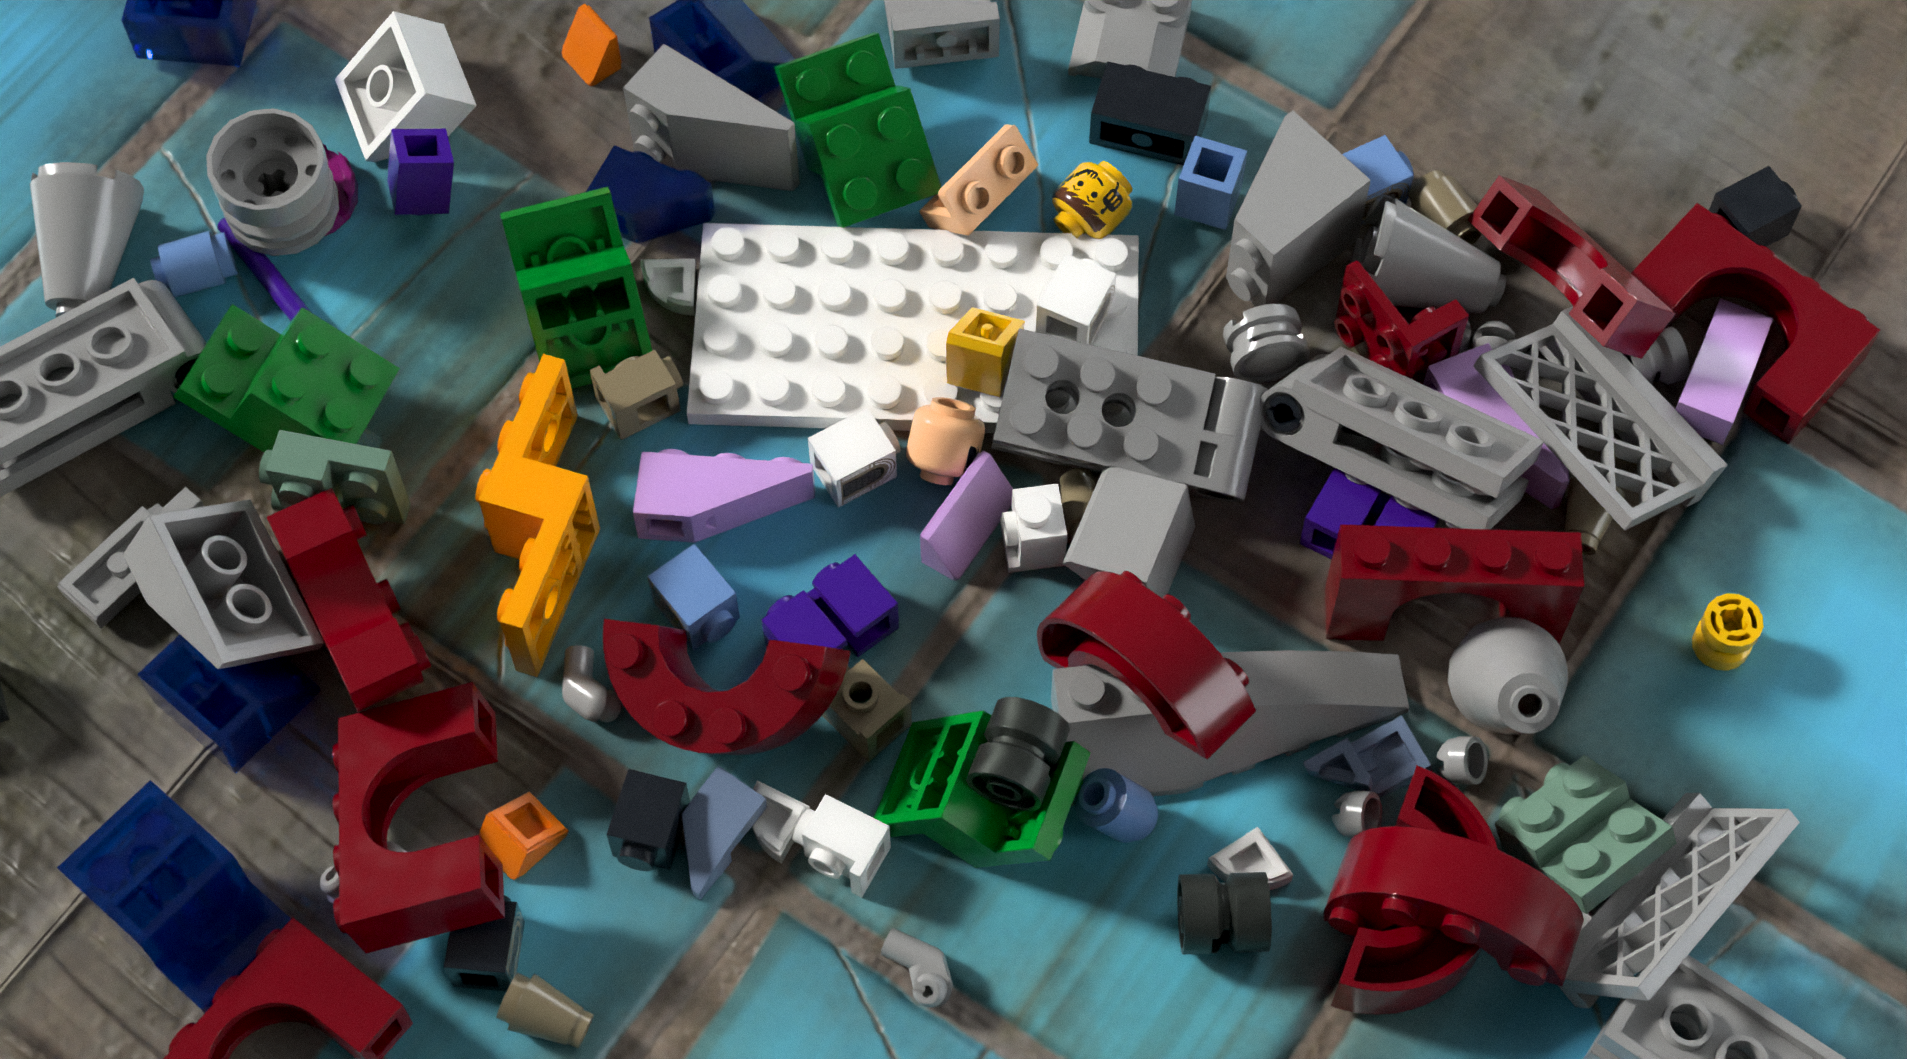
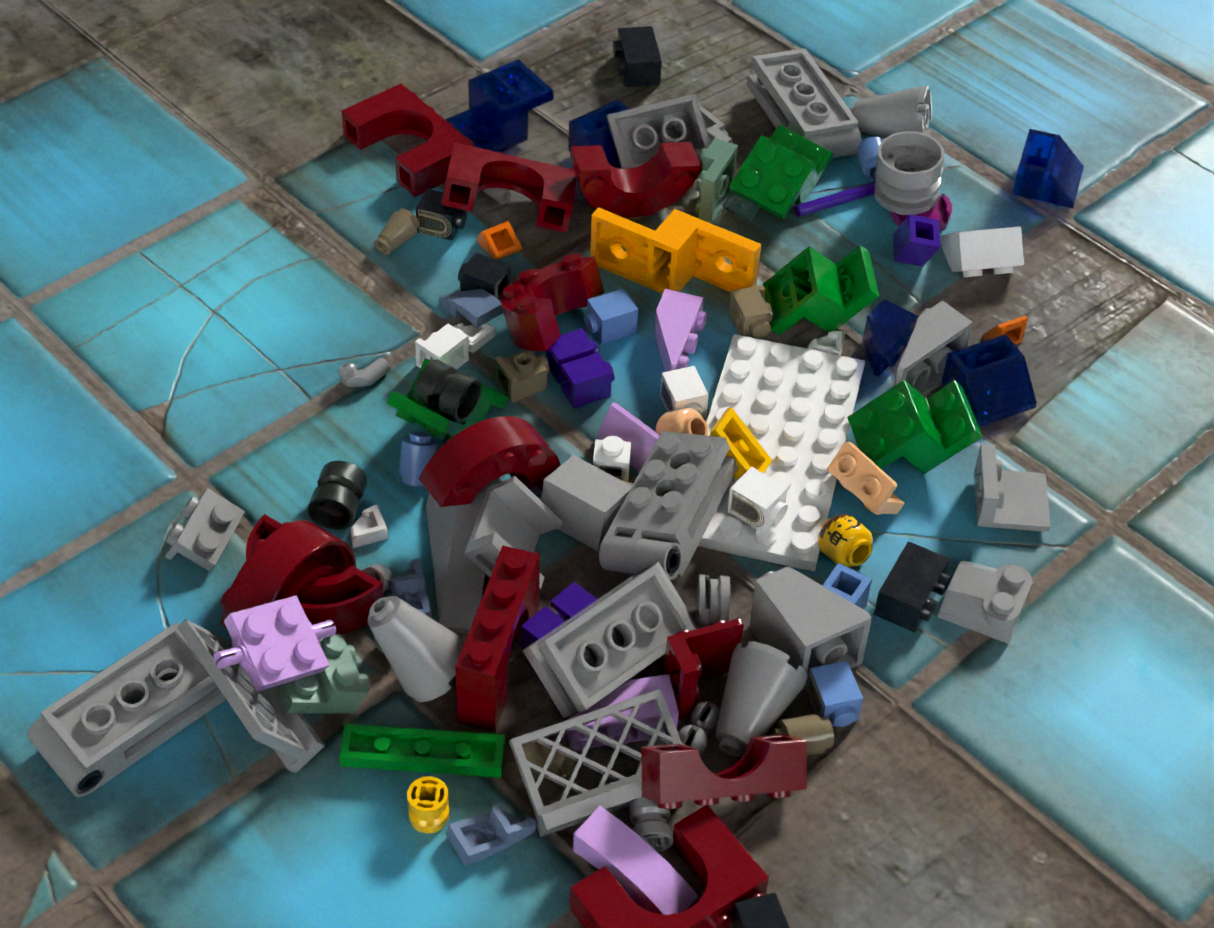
camera: 100 degrees right, 15 degrees down
(1267, 637) = (508, 518): none -> light grey panel
(1615, 856) = (275, 643): none -> lavender plate
(1640, 668) = (422, 750): none -> green plate
(1727, 558) = (487, 834): none -> sand blue slope

